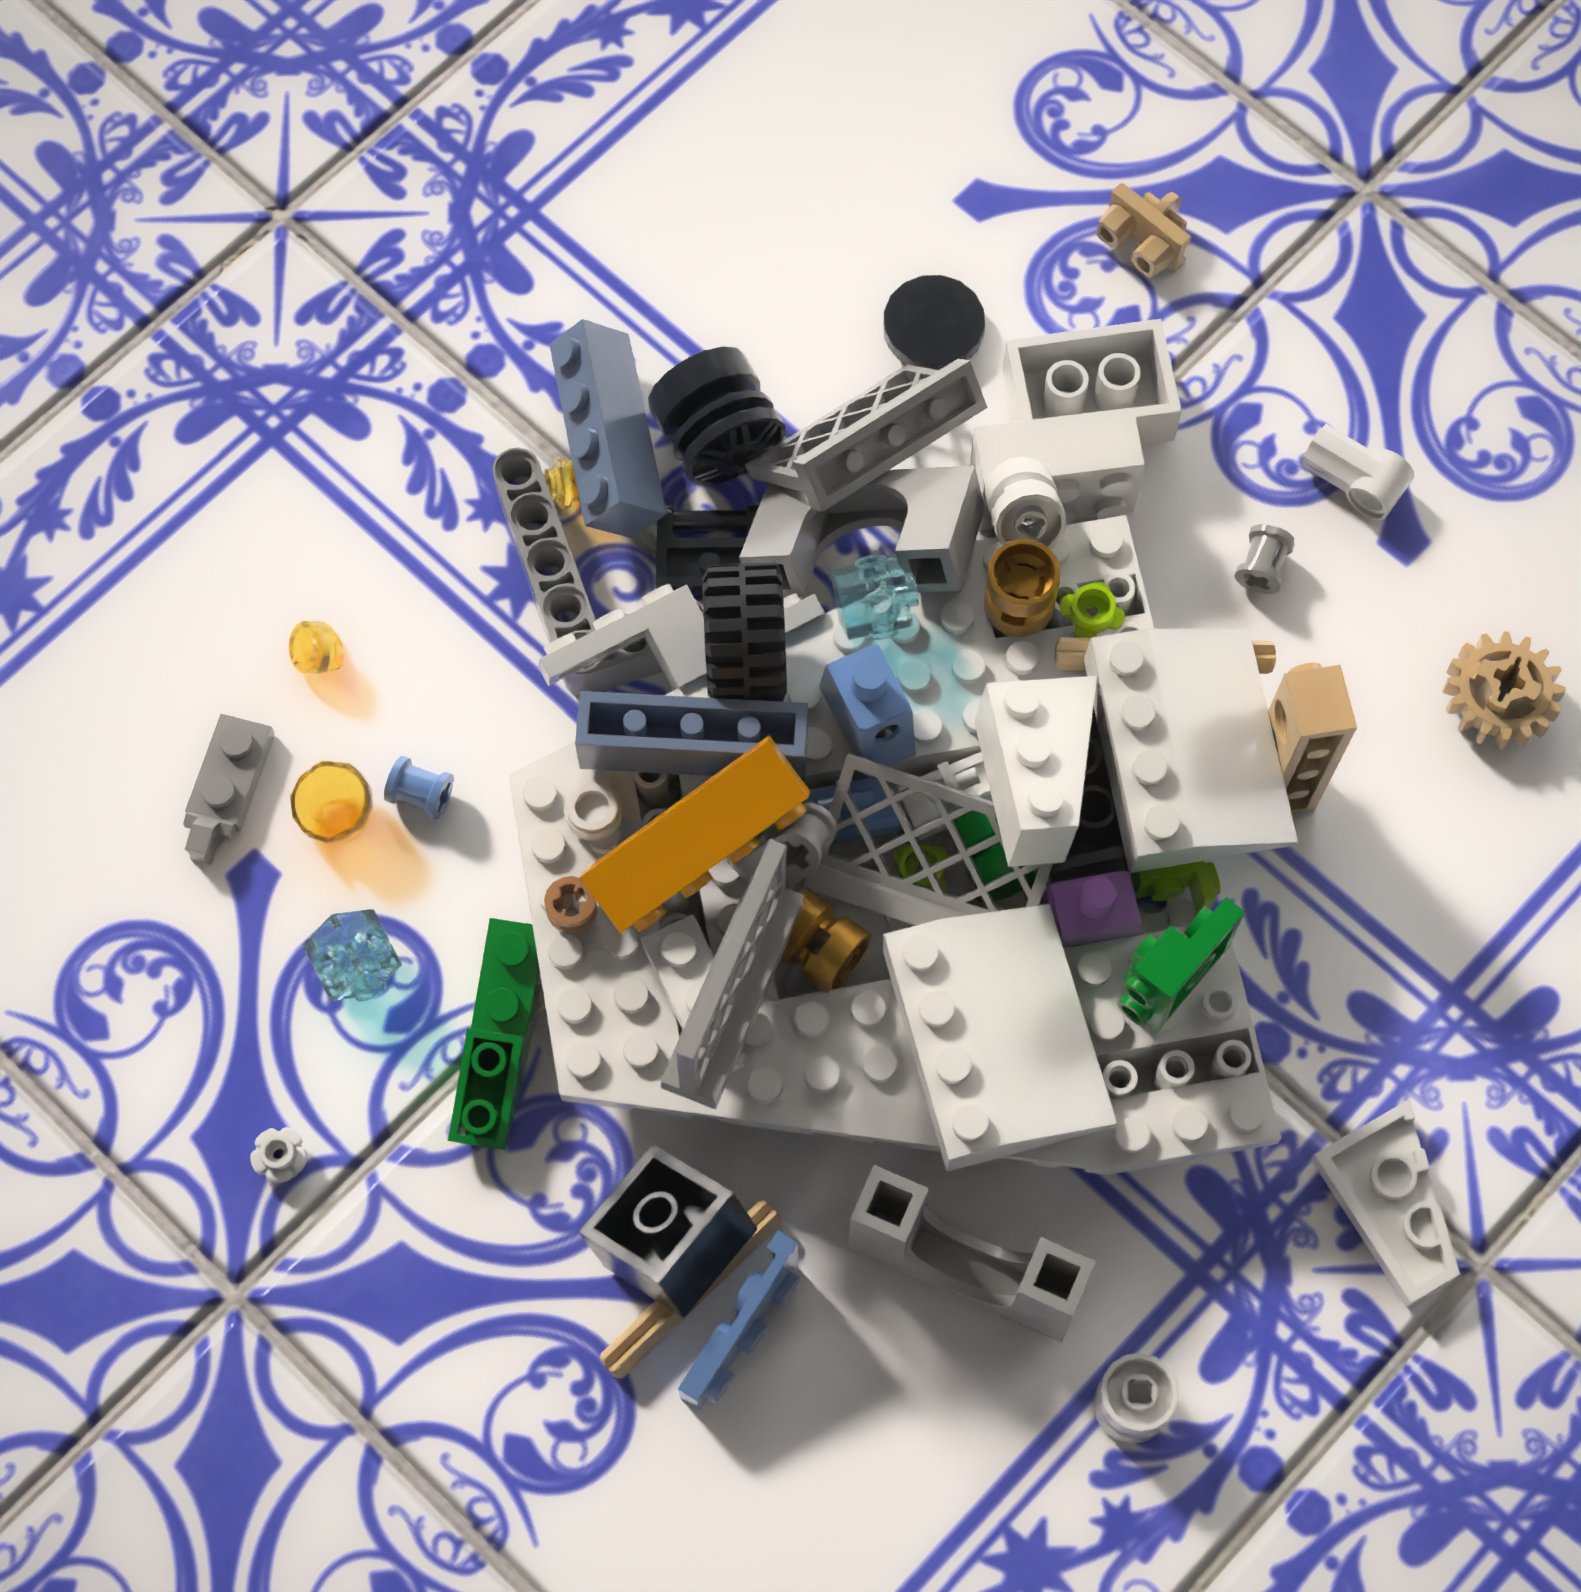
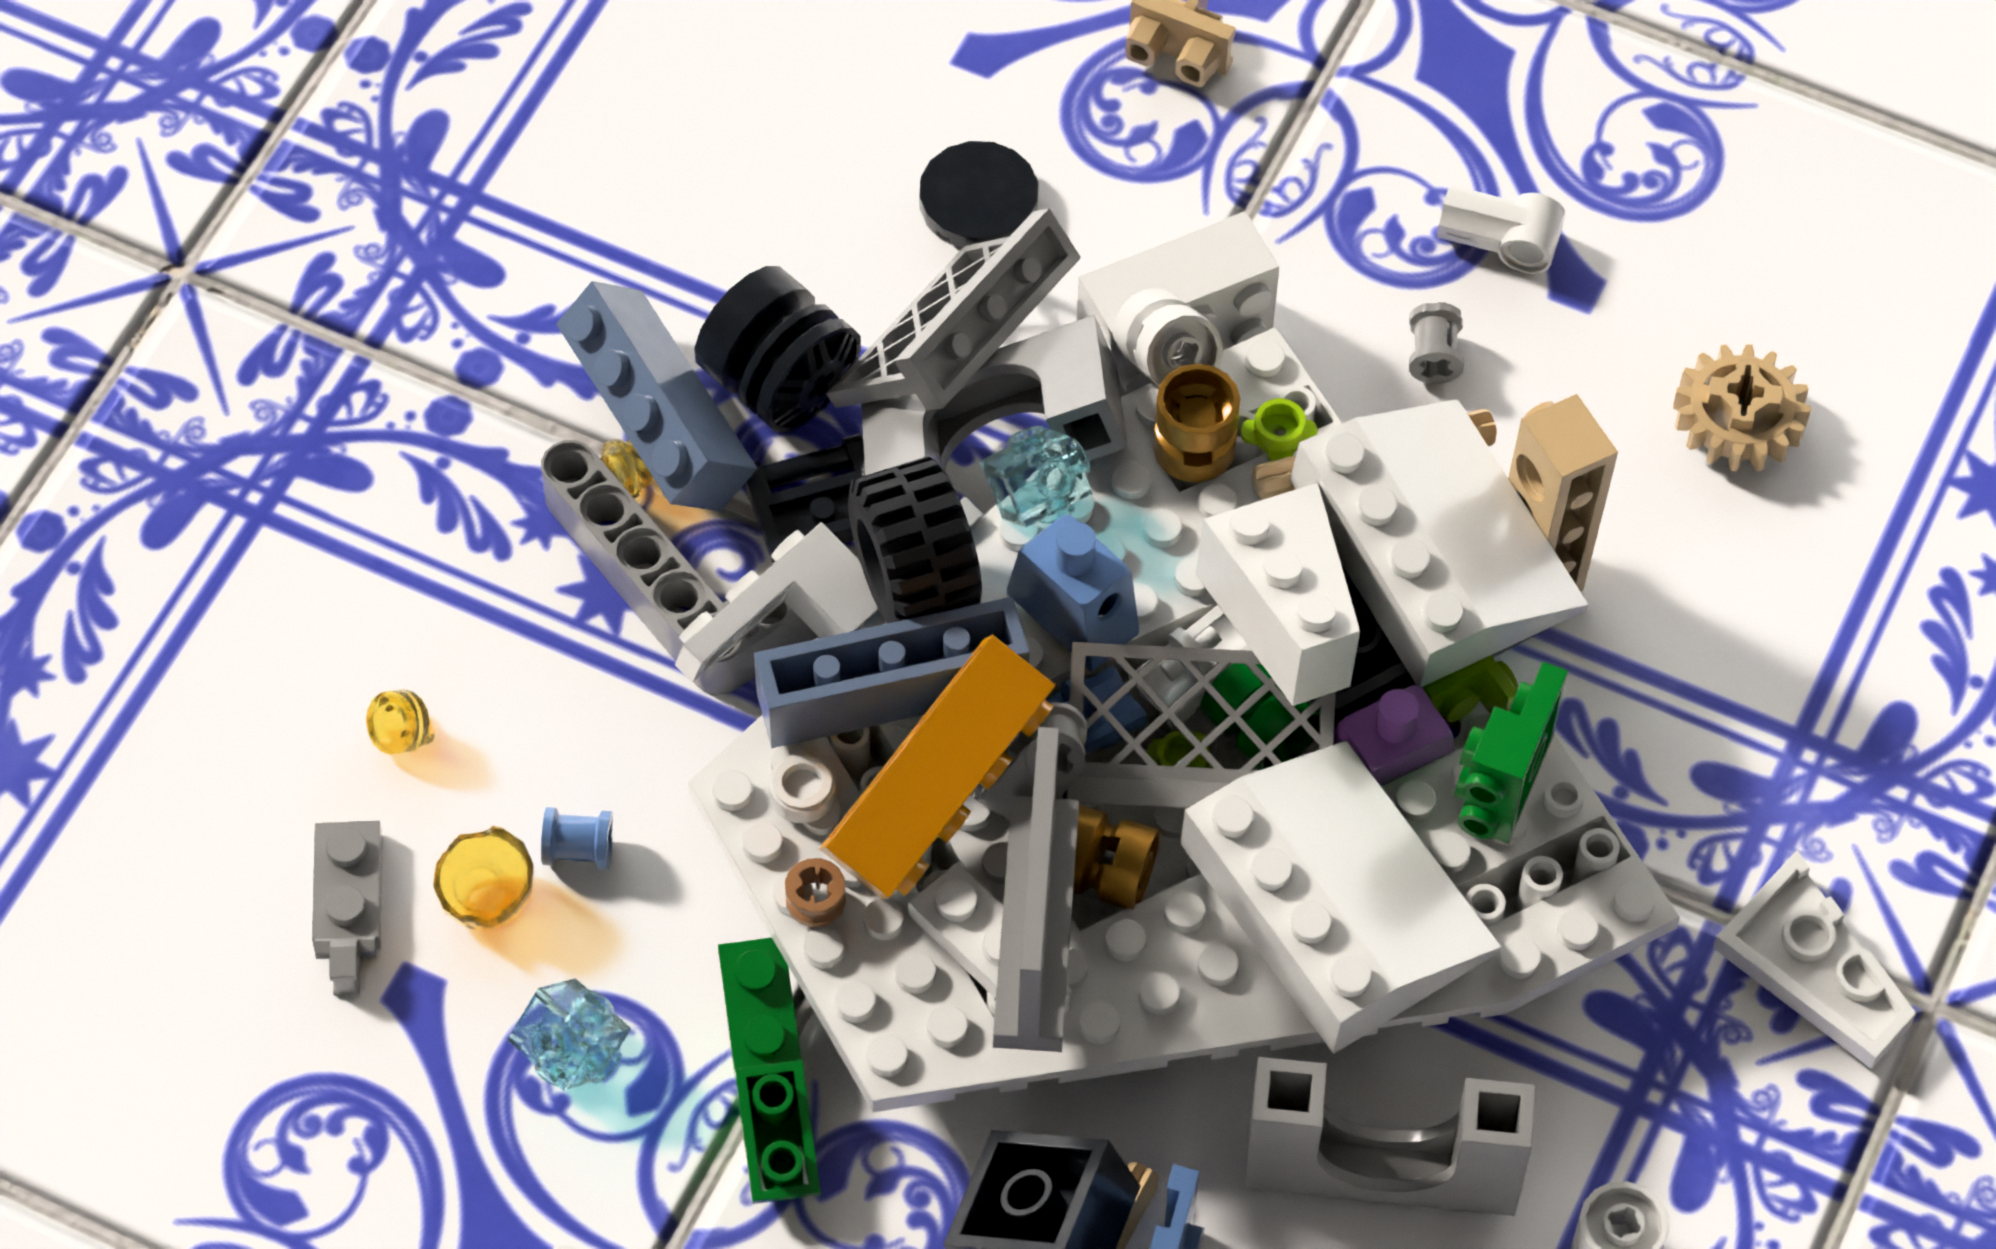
camera: 20 degrees left, 10 degrees down
(1095, 373) = (1182, 192): white brick -> none

